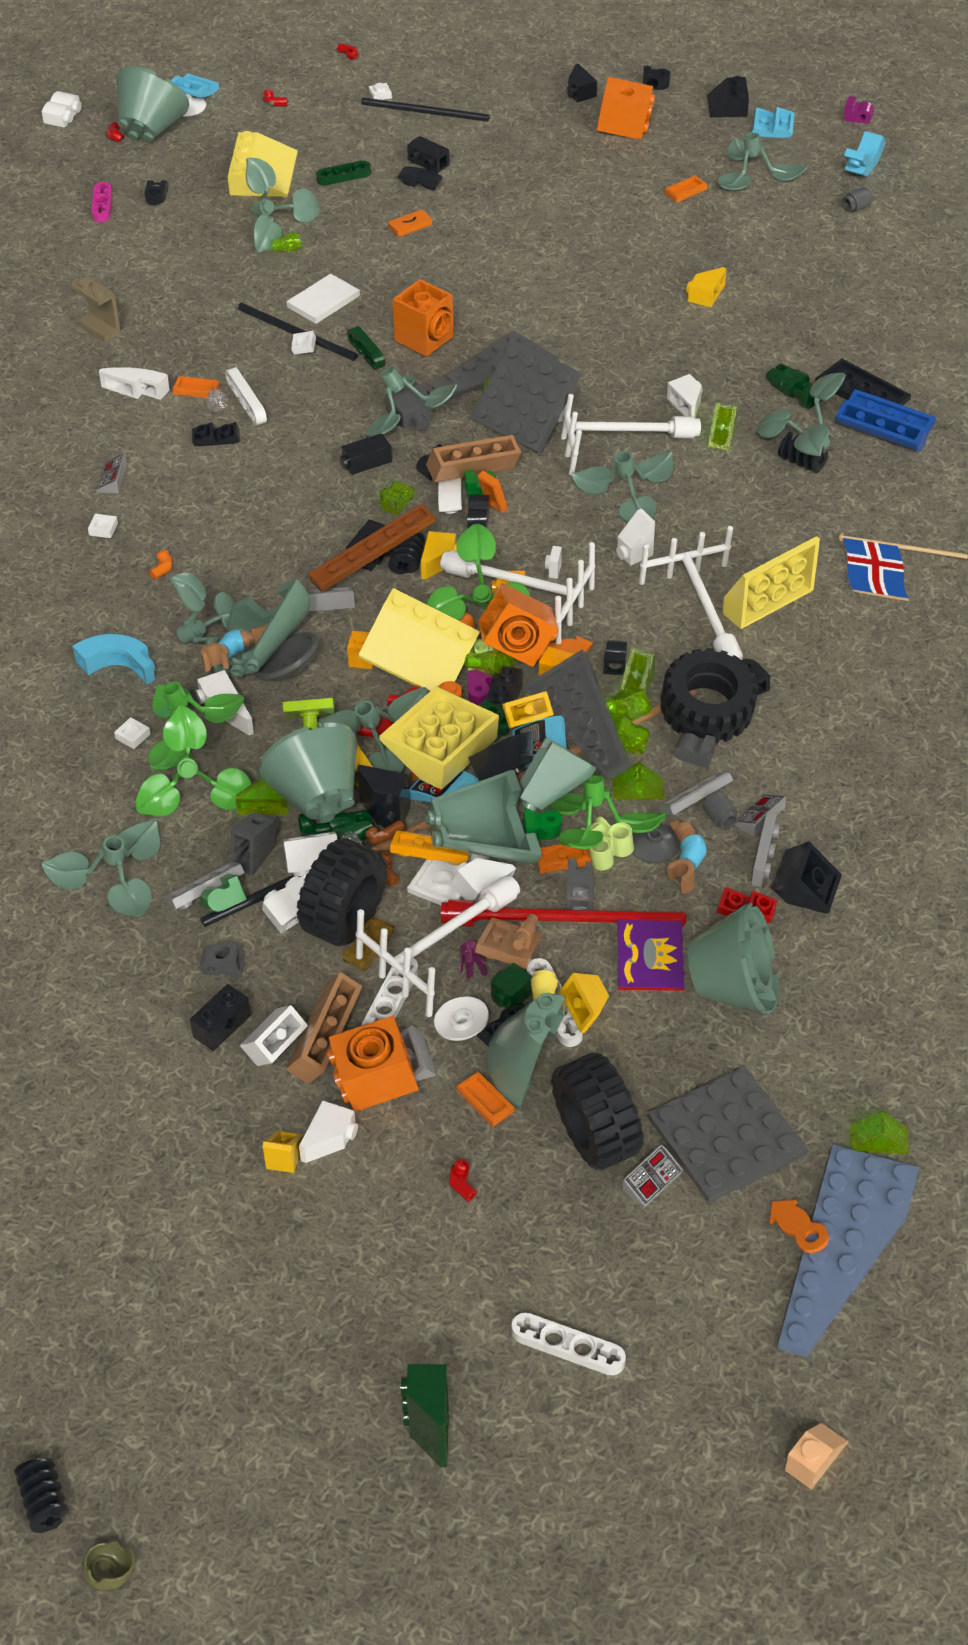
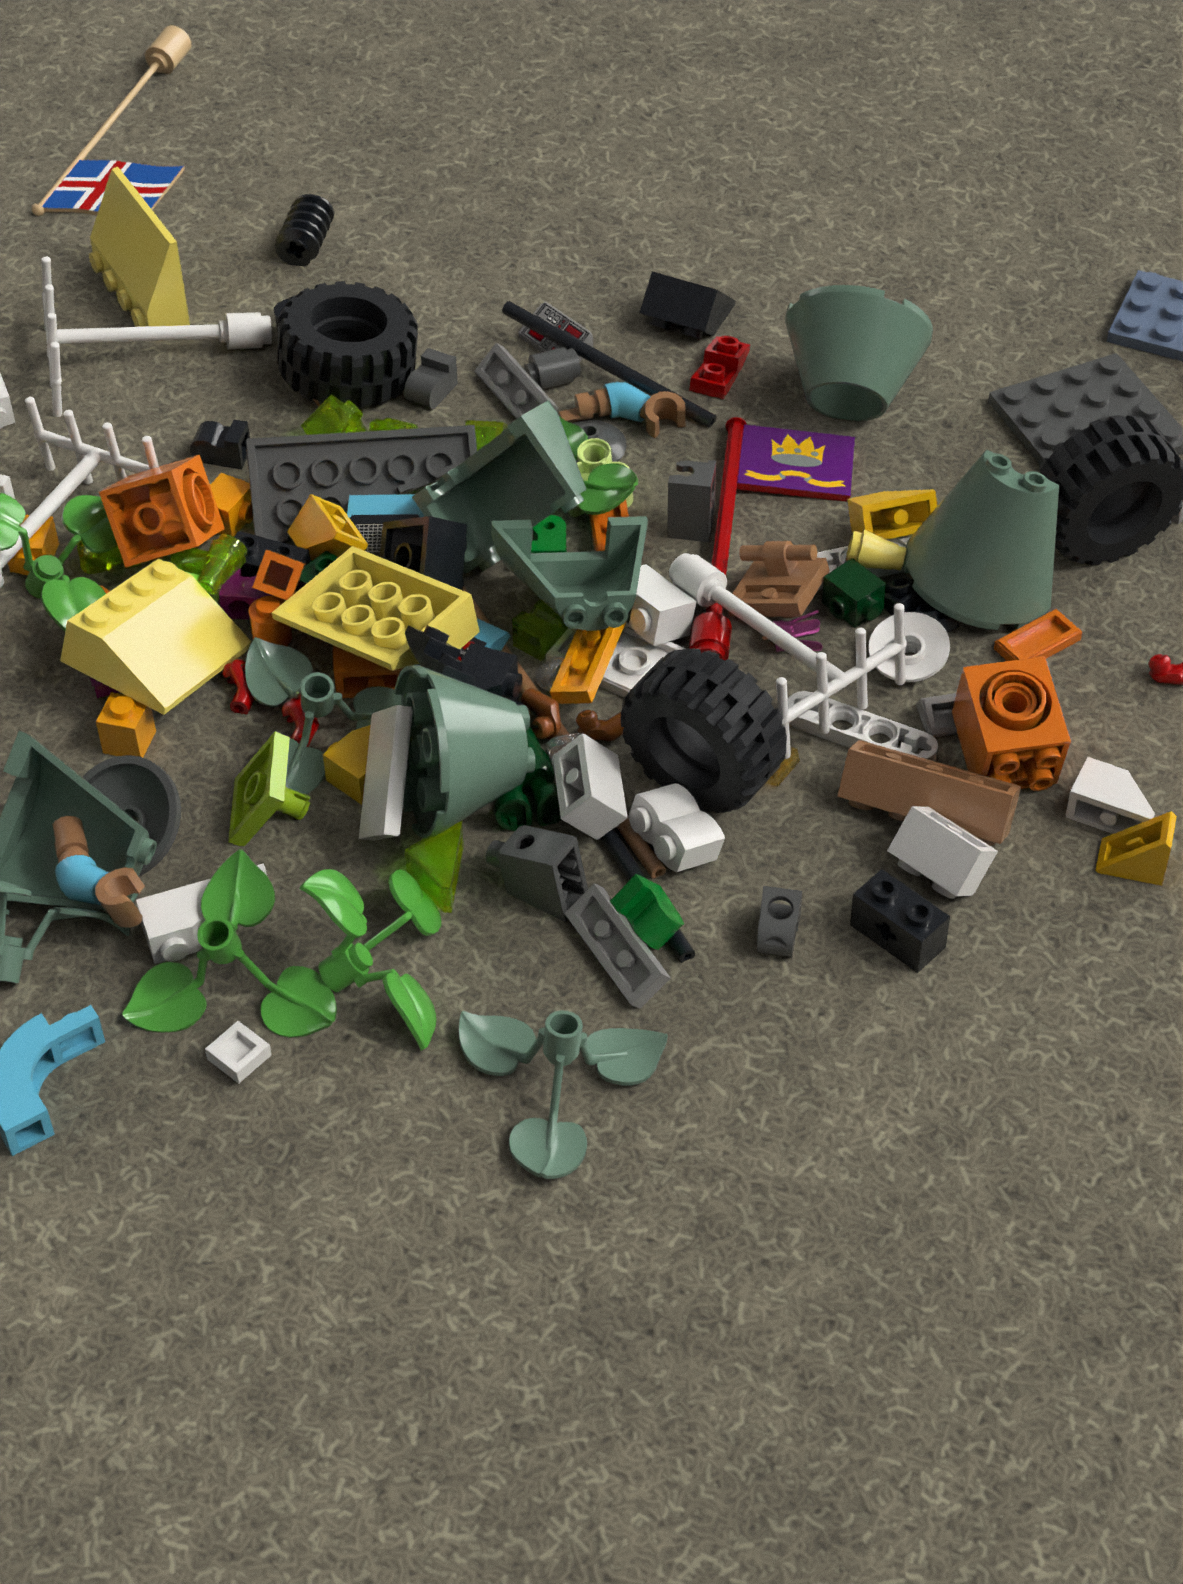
camera: 85 degrees left, 0 degrees up
(380, 754) = (436, 654): none -> black slope
(470, 685) = (278, 575): none -> orange brick
(639, 670) = (267, 413): clear neon green slope -> none
(728, 840) = (601, 360): none -> black piece
(765, 850) = (633, 335): light grey plate -> none
(842, 664) = (304, 230): none -> black piece
(879, 1135) = (1093, 298): clear neon green slope -> none

